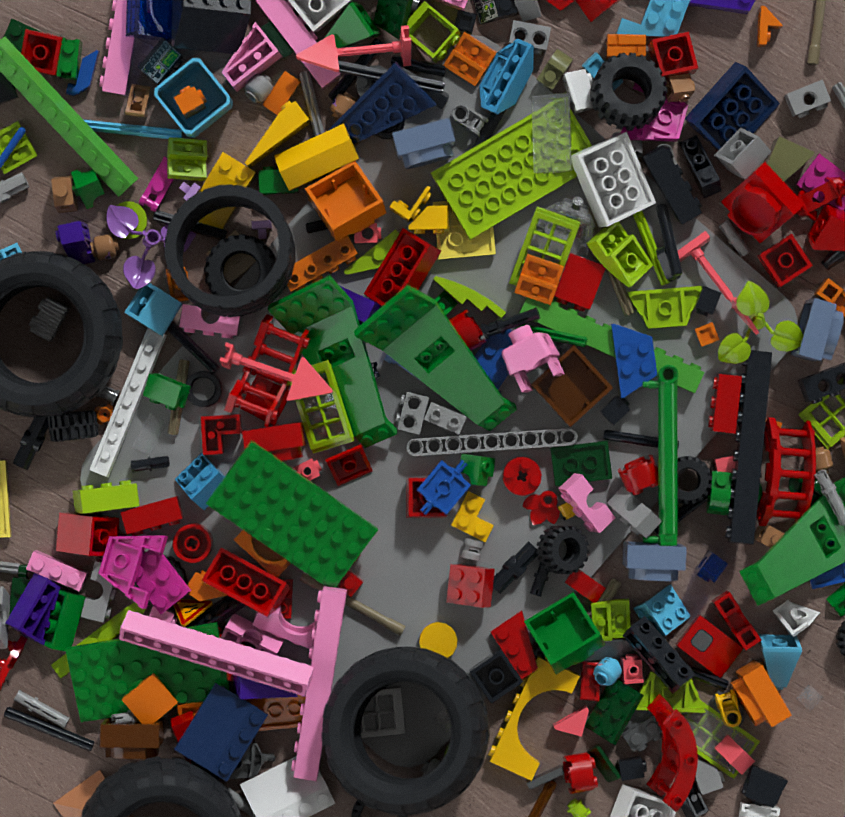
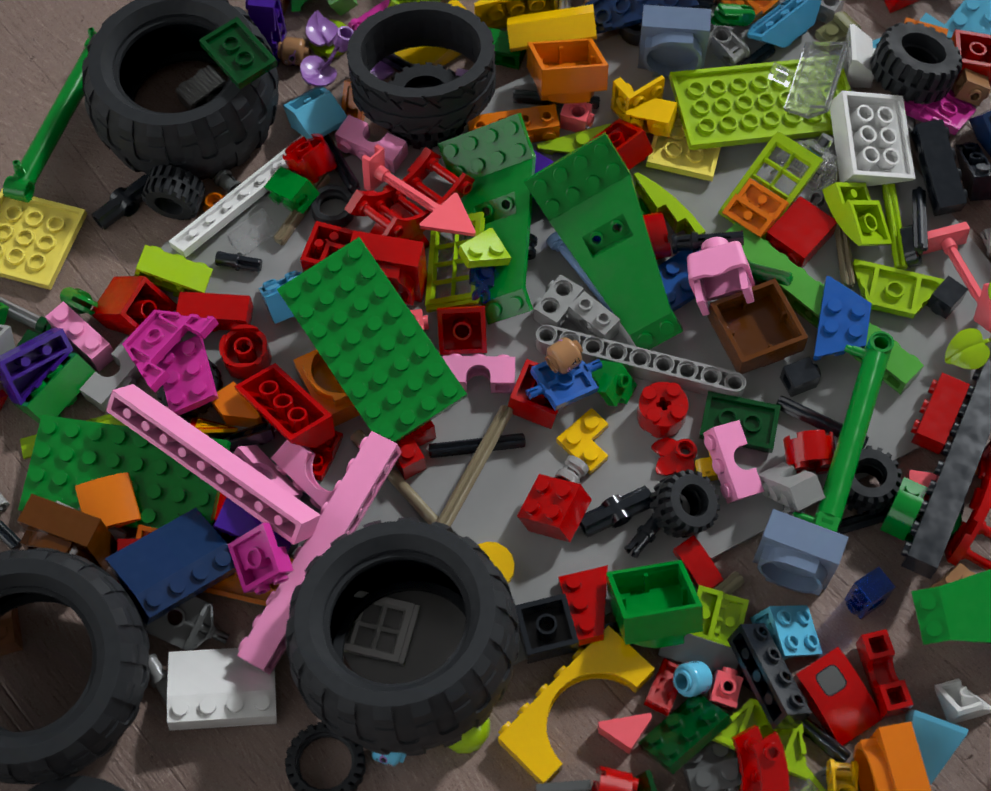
camera: 25 degrees right, 25 degrees down
(43, 544) = (78, 300): none -> green arm
(88, 316) = (238, 52): none -> dark green plate
(168, 357) = (310, 157): none -> red brick
(282, 711) = (260, 560): none -> dark pink plate
(344, 401) = (484, 251): none -> lime wing
(349, 421) = (483, 281): none -> clear blue plate
(390, 487) = (497, 369): none -> bright pink arch
(394, 551) = (470, 446): none -> black axle
(401, 573) = (475, 466): none -> dark tan axle
(439, 475) = (564, 355): none -> medium nougat head
(462, 92) = (732, 15): none -> green arm
(522, 139) = (781, 74): none -> clear slope
(706, 334) = (936, 333): orange plate -> none

